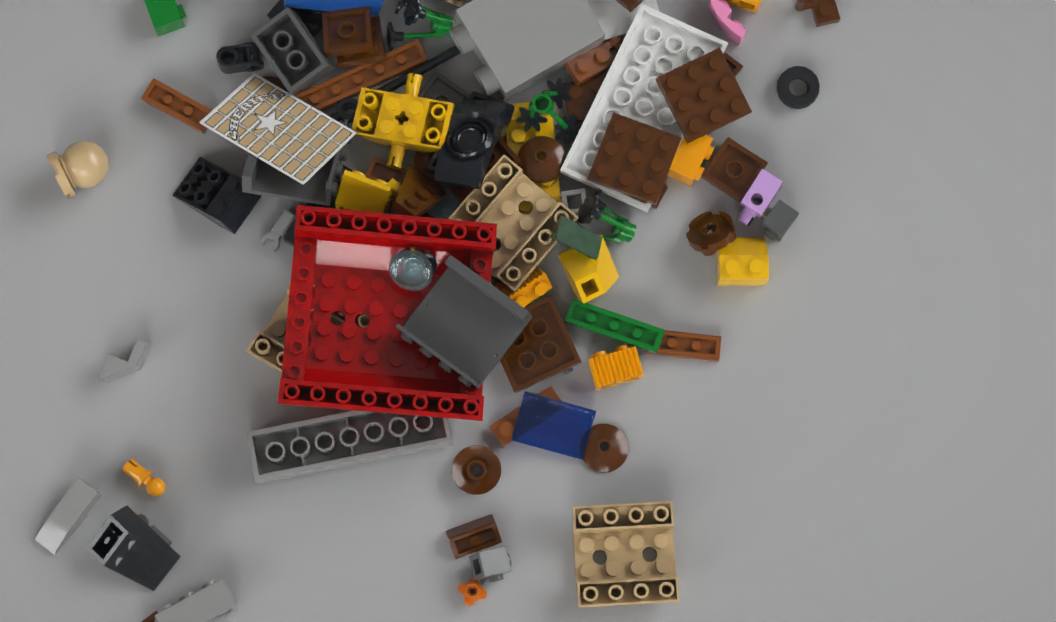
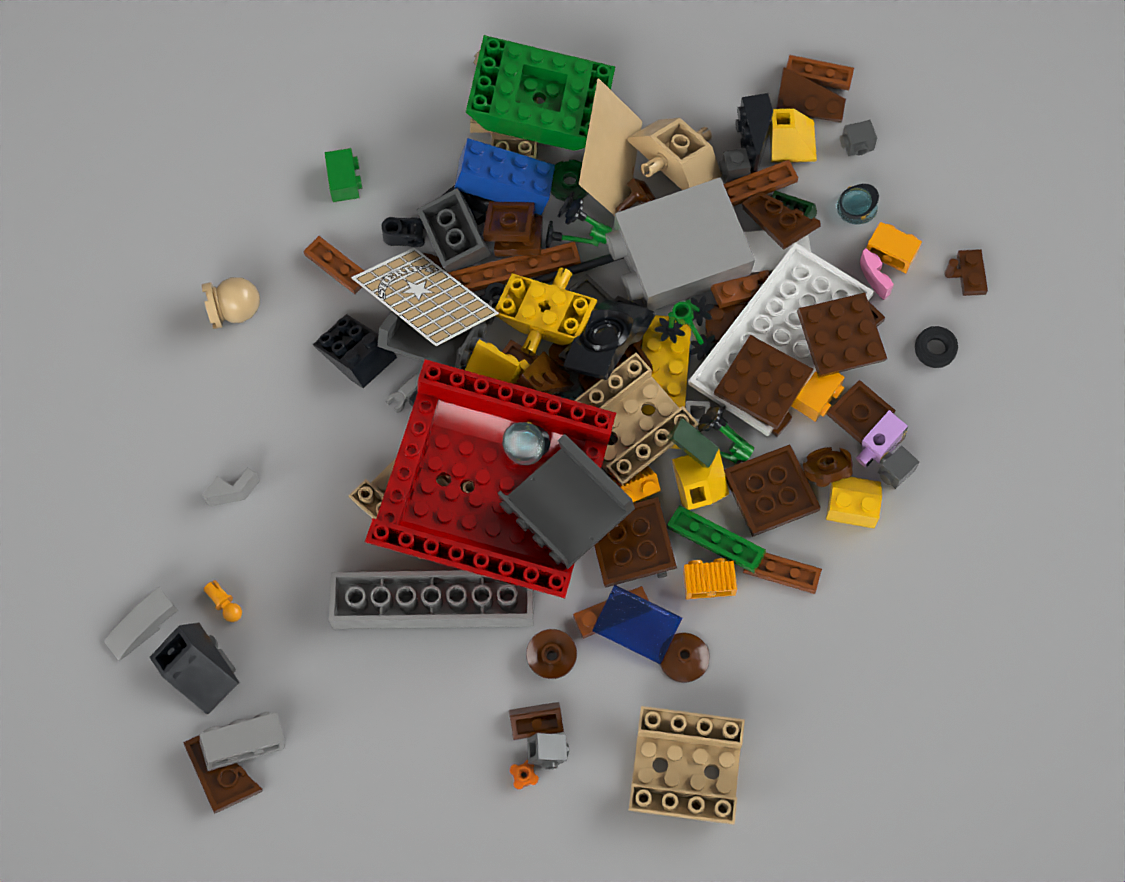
camera: 15 degrees right, 10 degrees down
(546, 169) = (673, 377): reddish brown dish -> none
(660, 266) = (771, 490): none -> reddish brown plate

